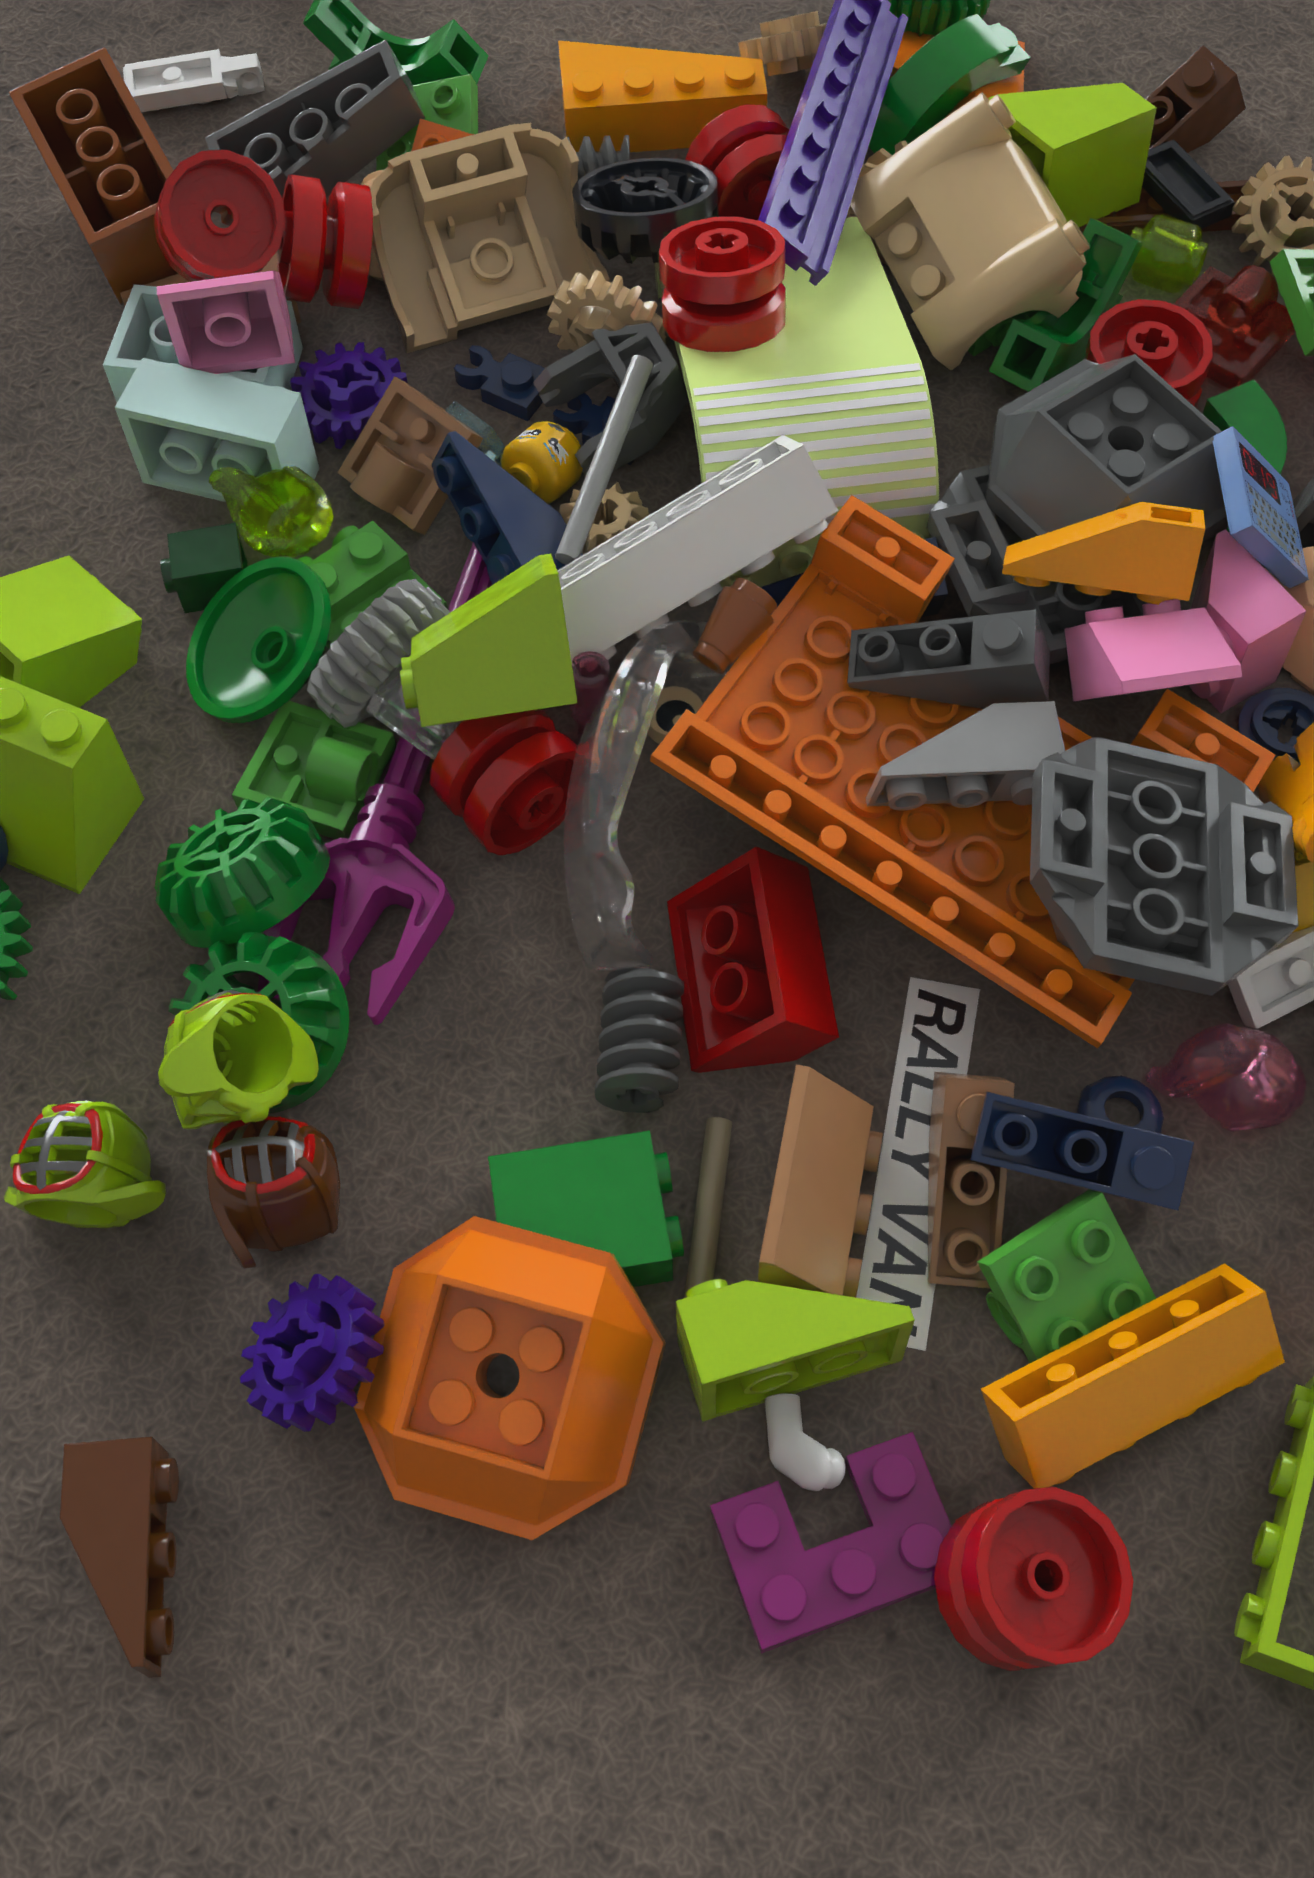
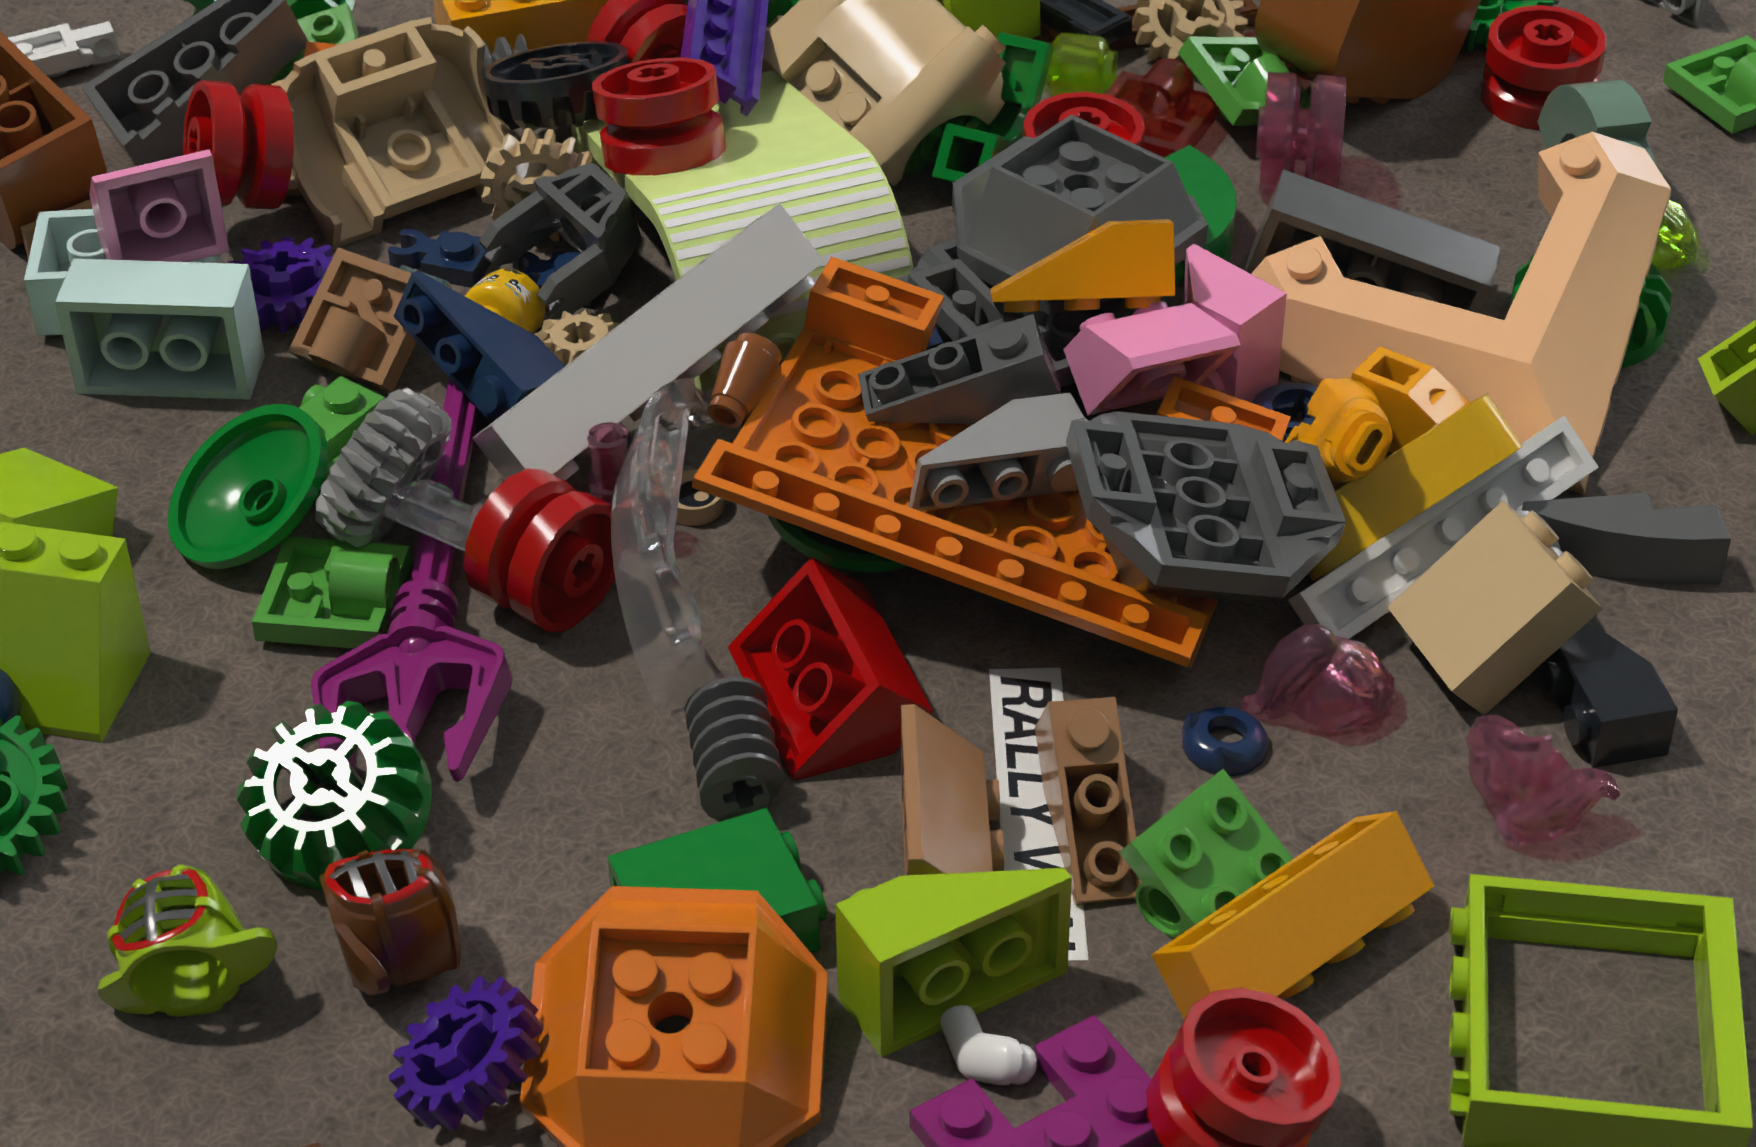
camera: 15 degrees left, 20 degrees down
(202, 563) = (166, 440): dark green brick -> none
(233, 1061) = (334, 809): lime piece -> none
(240, 872) = (282, 669): green gear -> none
(244, 198) = (129, 118): red wheel -> none
(277, 511) = (237, 374): clear neon green hair -> none
(494, 652) = (521, 416): lime slope -> none
(604, 460) = (573, 280): light grey bar -> none
(709, 1202) = (835, 858): dark tan piece -> none
(1082, 1150) = (1194, 741): dark blue slope -> none
(1259, 508) = (1220, 218): medium blue tile -> none

